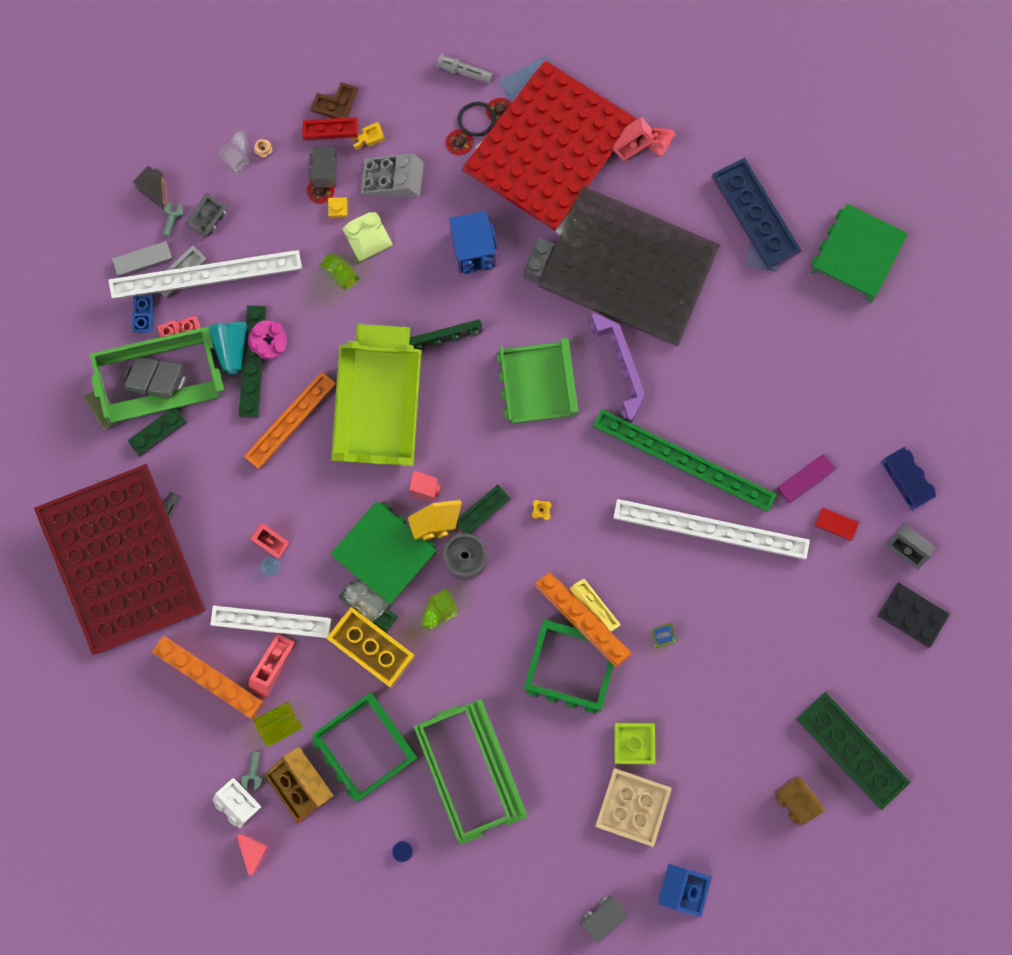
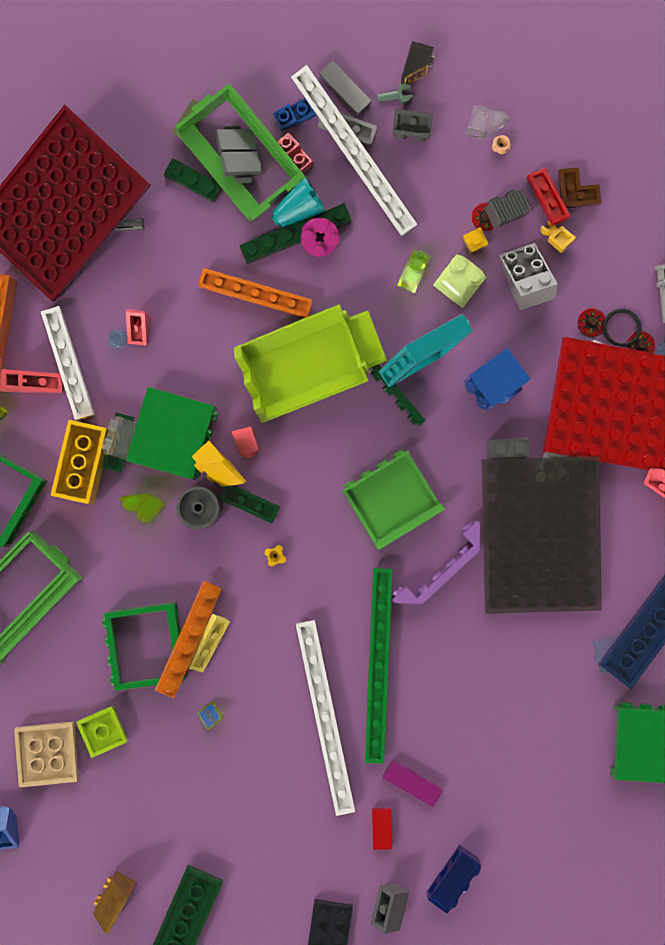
camera: 65 degrees right, 10 degrees up
(418, 287) = (425, 350): none -> teal window

